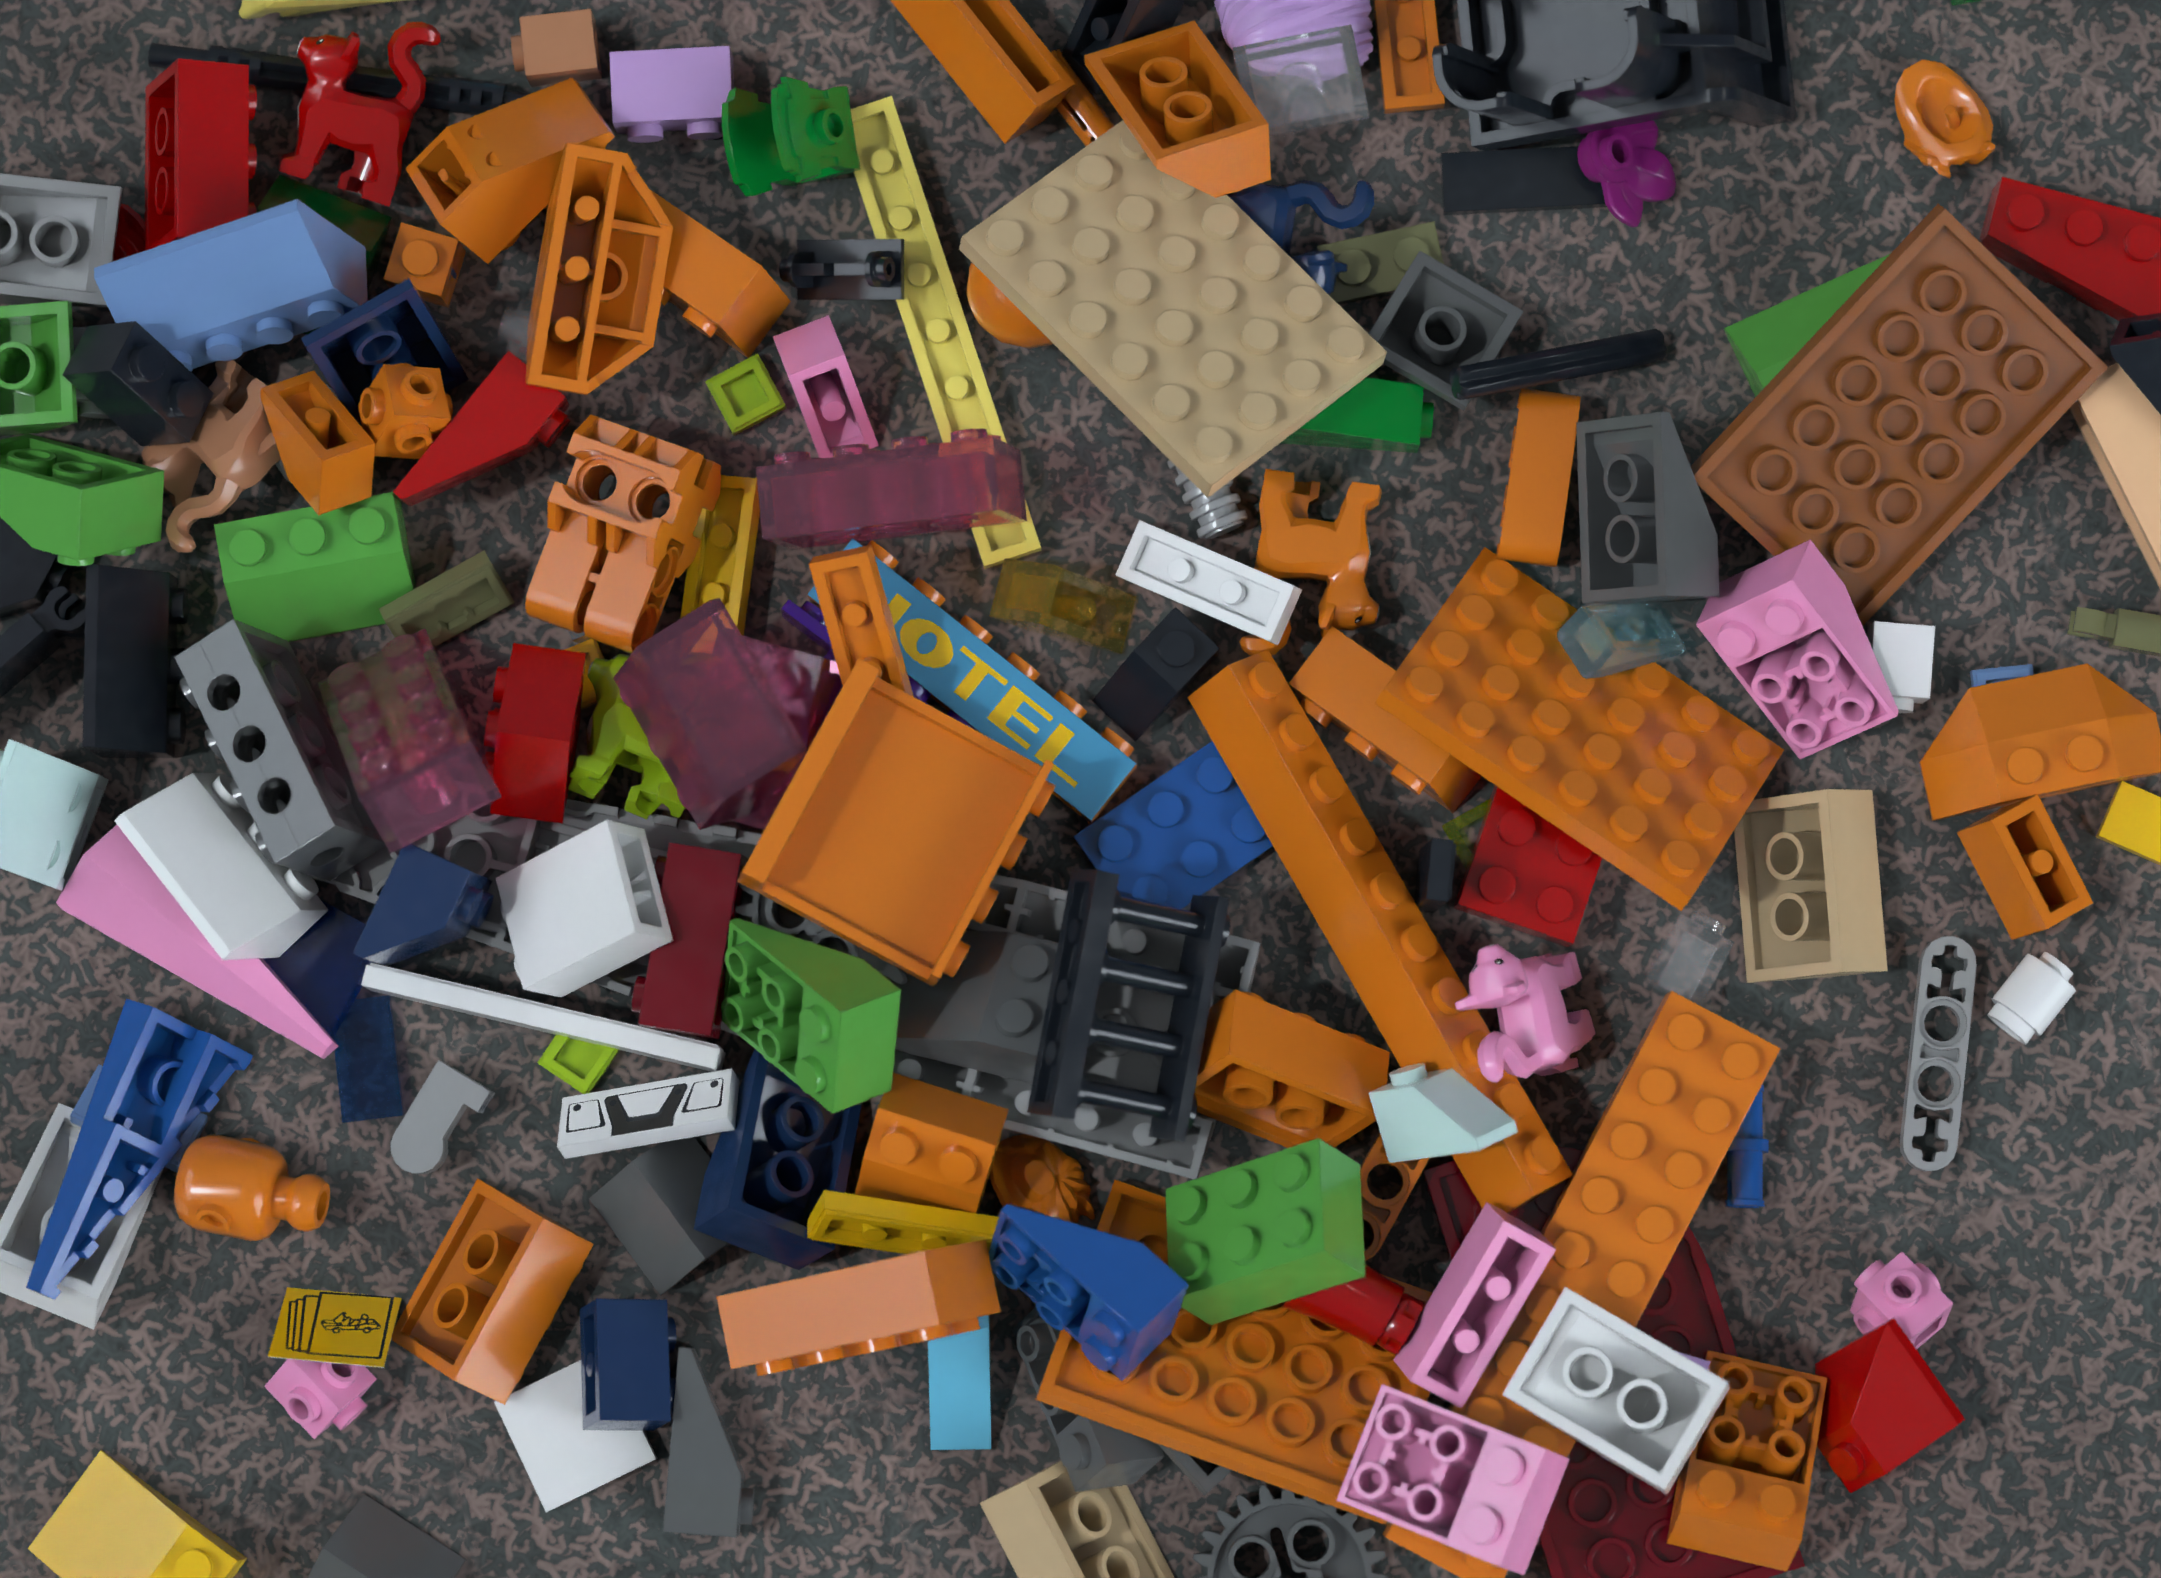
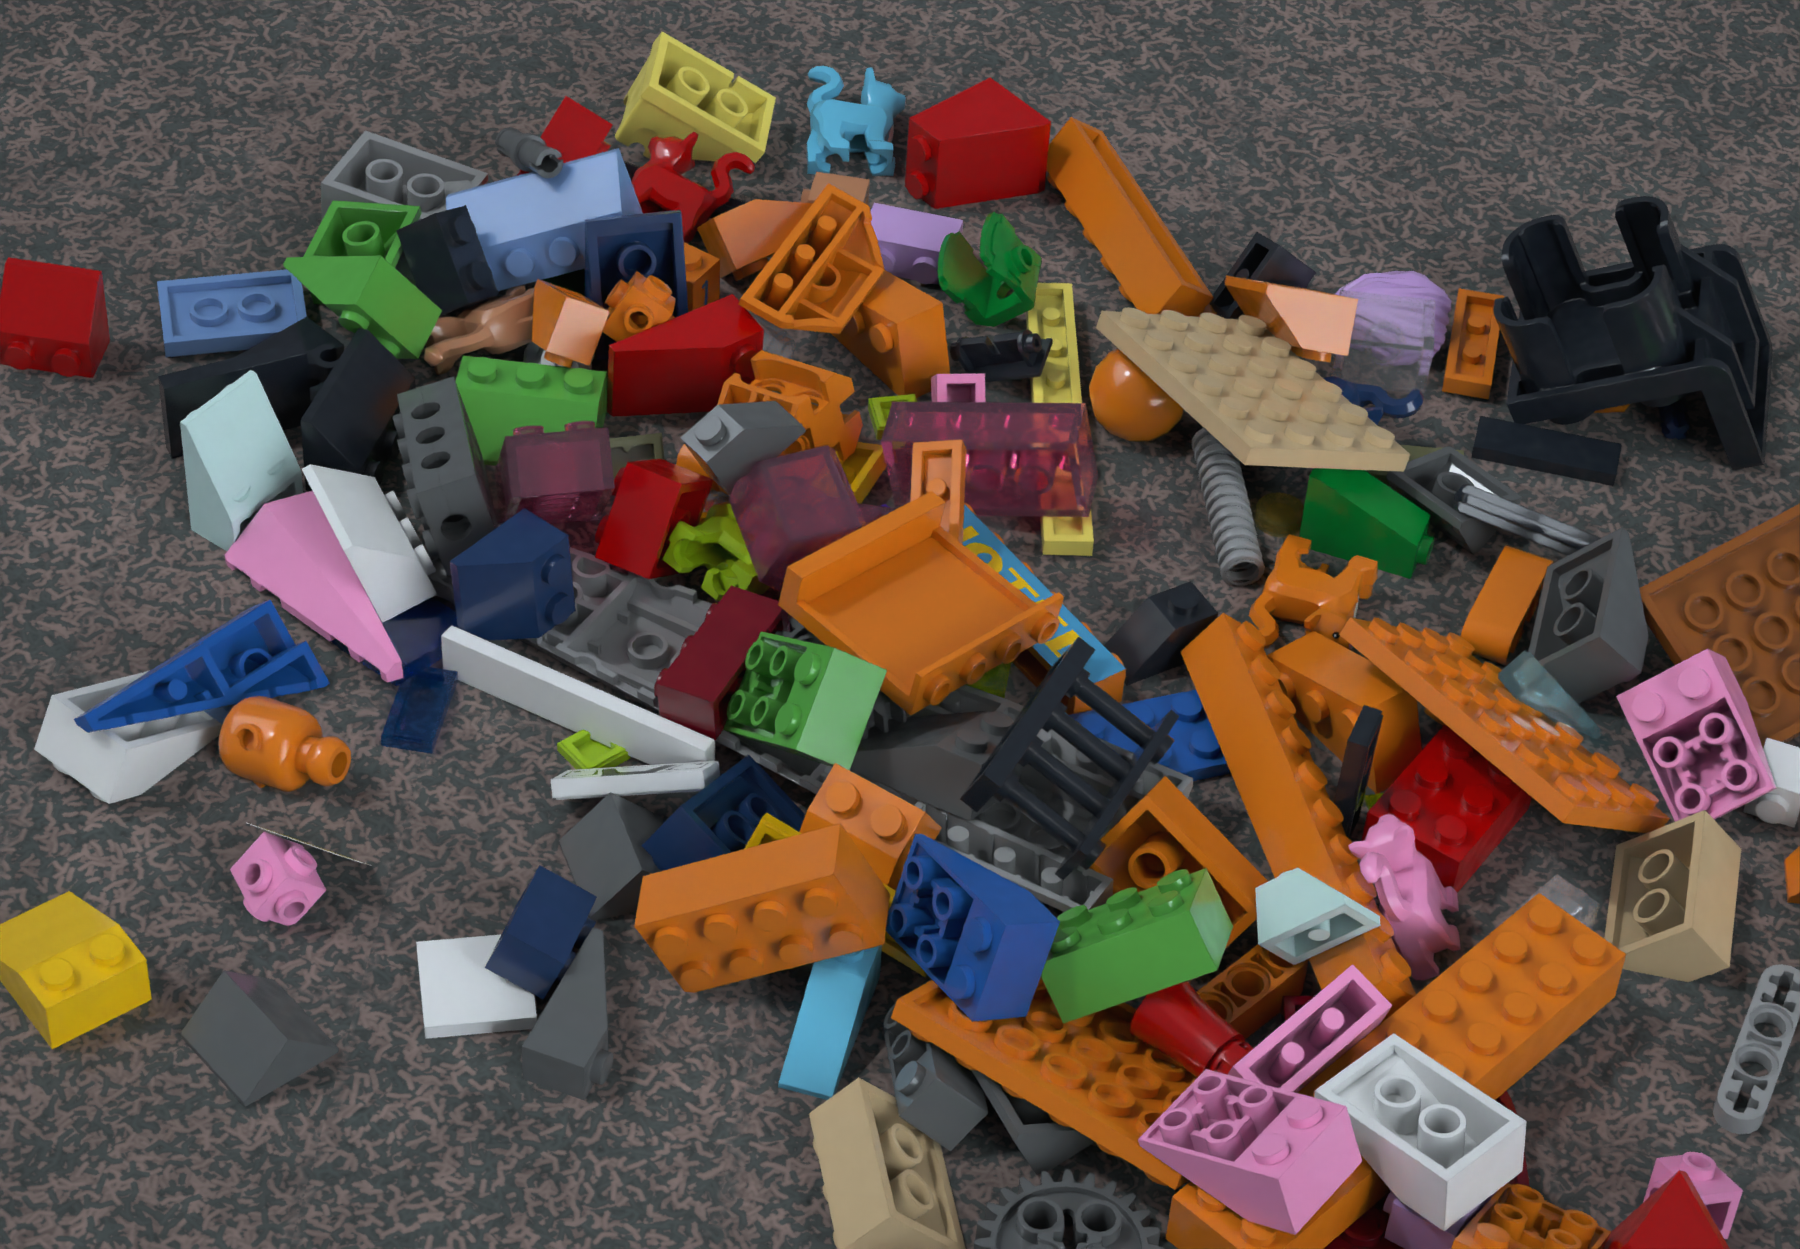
camera: 10 degrees right, 40 degrees down
(182, 217) = (529, 152): none -> dark grey pin
(422, 1135) = (460, 747): light grey leg -> none
(491, 1292) = (454, 868): orange slope -> none
(583, 909) = (643, 613): white brick -> none
(606, 613) = (738, 436): none -> dark grey slope
(1062, 605) = (1095, 575): clear yellow slope -> none
(1208, 582) = (1226, 586): white plate -> none
(1627, 168) = (1624, 448): magenta plate -> none
(1746, 1160) = (1572, 1065): blue pin -> none

